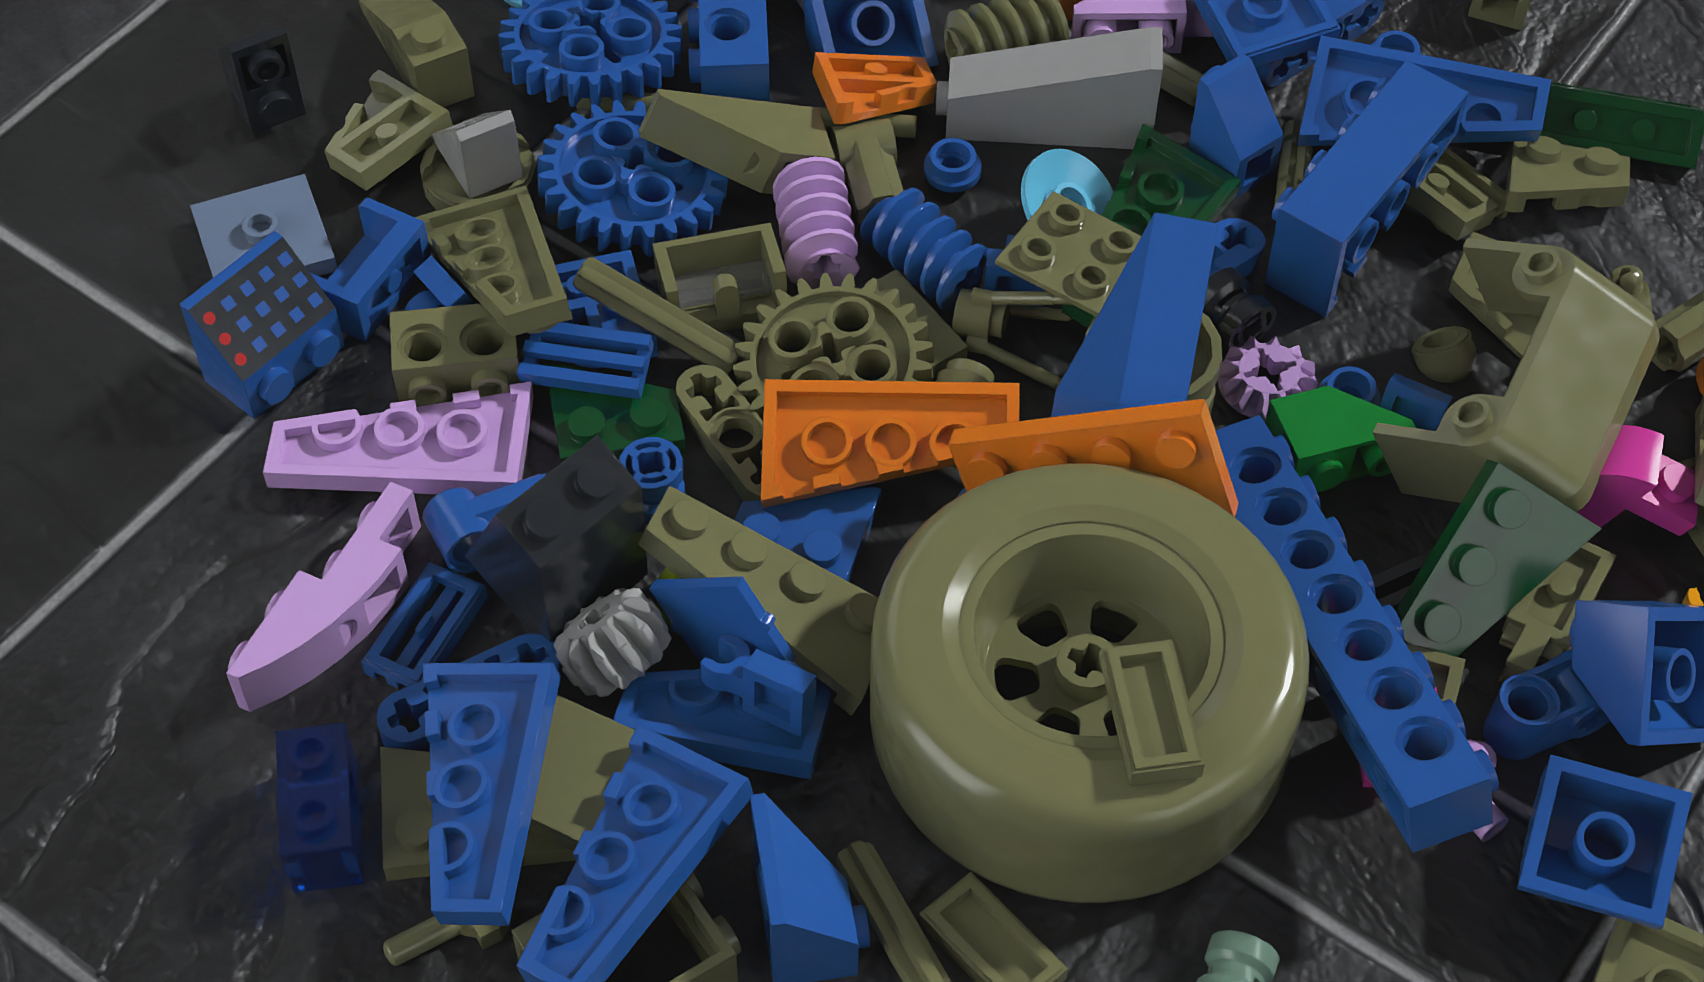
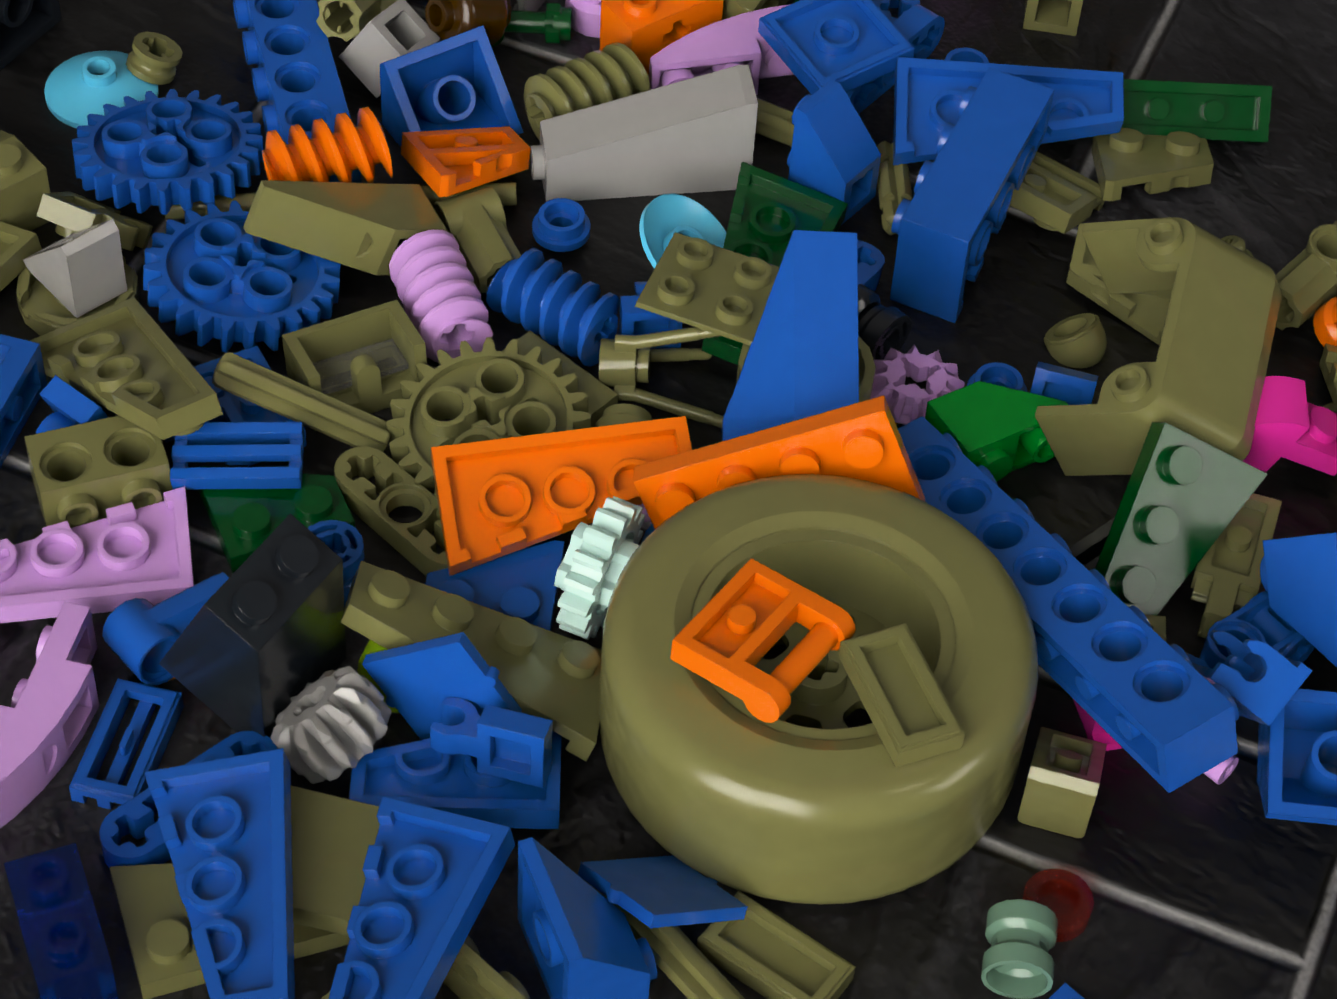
camera: 15 degrees left, 5 degrees down
(493, 93) = (76, 213): none -> olive plate
(732, 66) = (328, 151): none -> orange piece
(891, 862) = (662, 891): none -> blue piece
(897, 515) = (594, 565): none -> light aqua gear
(1009, 617) = (746, 623): none -> orange plate
(1293, 934) = (1064, 895): none -> clear red tile
(1318, 813) = (1062, 783): none -> olive slope
(1528, 746) = (1254, 676): none -> blue hinge

